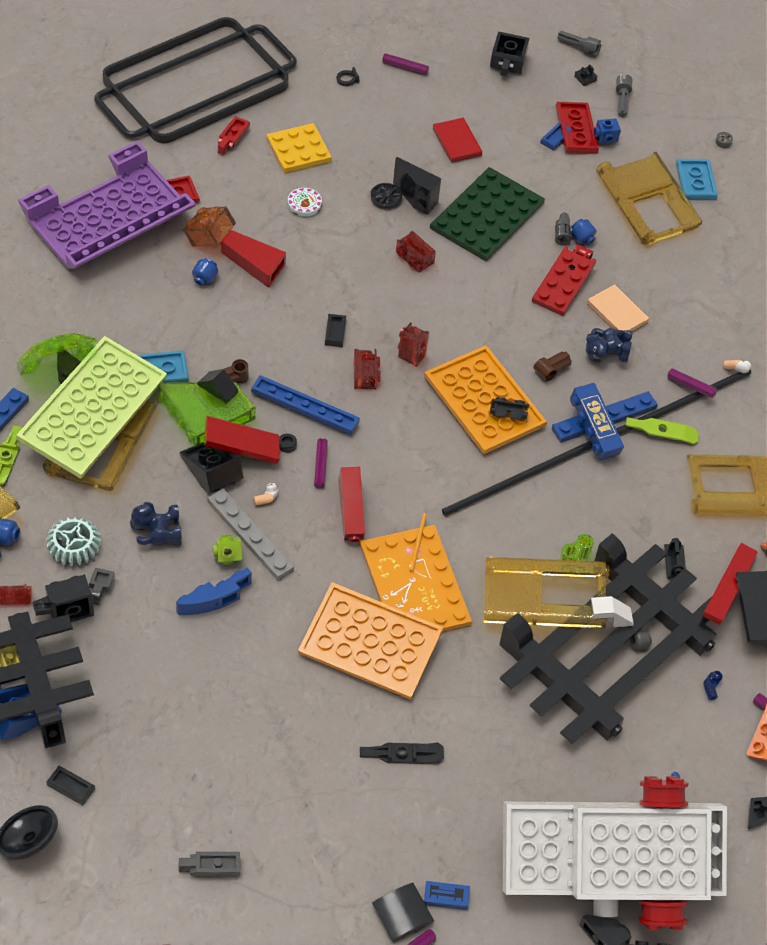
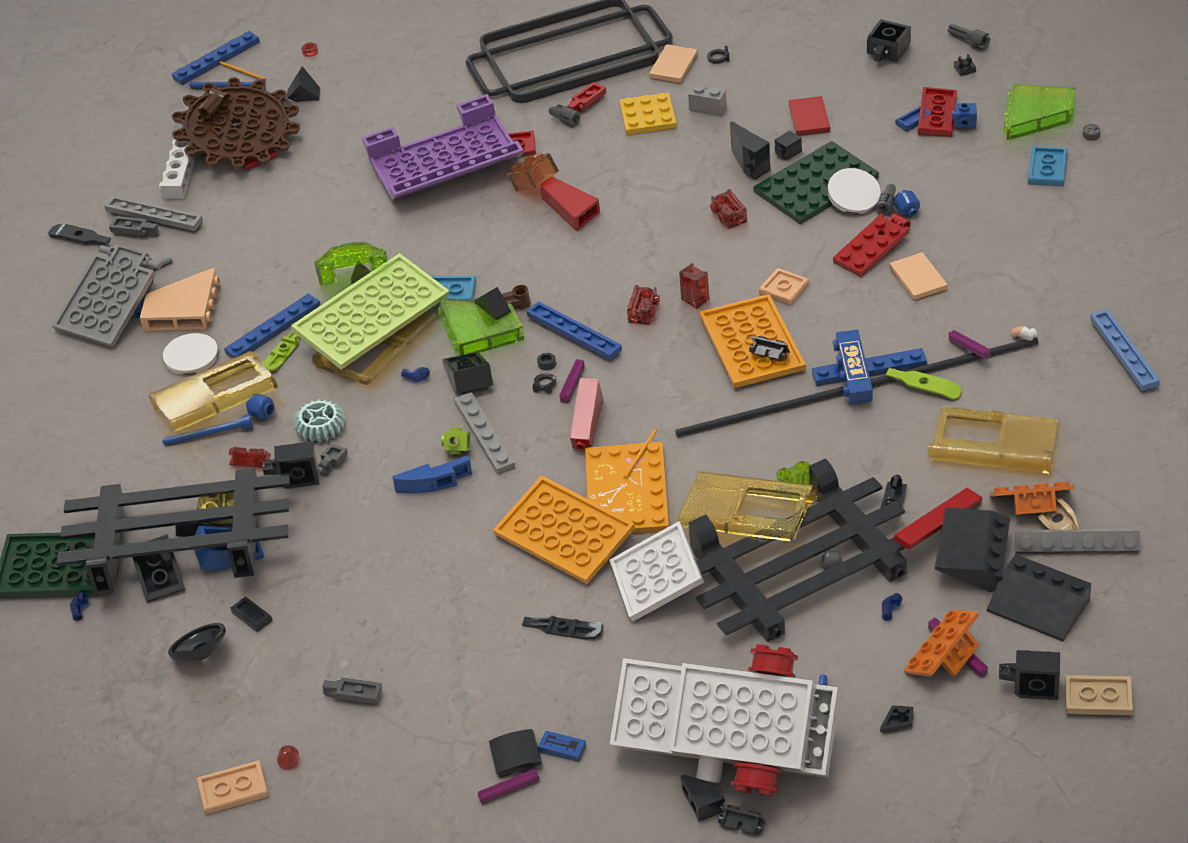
camera: 25 degrees right, 10 degrees down
(146, 517) = (402, 416): dark blue animal -> none
(157, 474) = (416, 375): none -> clear blue arm
(205, 271) = (517, 211): blue head -> none
(217, 154) = (565, 114): none -> dark grey hinge
(242, 440) = (499, 351): red tile -> none
(268, 496) = (512, 403): arm -> none
(287, 474) = (548, 387): none -> black piece
(304, 202) = (636, 160): light aqua tile -> none
(306, 89) = (673, 63): none -> light nougat tile
(335, 330) = (627, 271): black tile -> none
(355, 130) = (706, 100): none -> light grey brick
(386, 195) = (719, 159): black wheel -> none
(405, 64) = (781, 46): magenta axle -> none
(450, 175) = (788, 145): none -> black brick
(482, 680) = (656, 571): none -> white plate
(494, 333) = (784, 286): none -> light nougat tile
(530, 222) = (853, 190): none -> white tile
(549, 367) = (825, 319): reddish brown piece -> none
(608, 341) = (894, 300): dark blue animal -> none
(612, 608) = (811, 529): white slope -> none
(623, 87) = (999, 78): dark grey piece -> none
(642, 181) = (986, 164): clear yellow piece -> none
(669, 118) = (1037, 109): none -> clear neon green slope

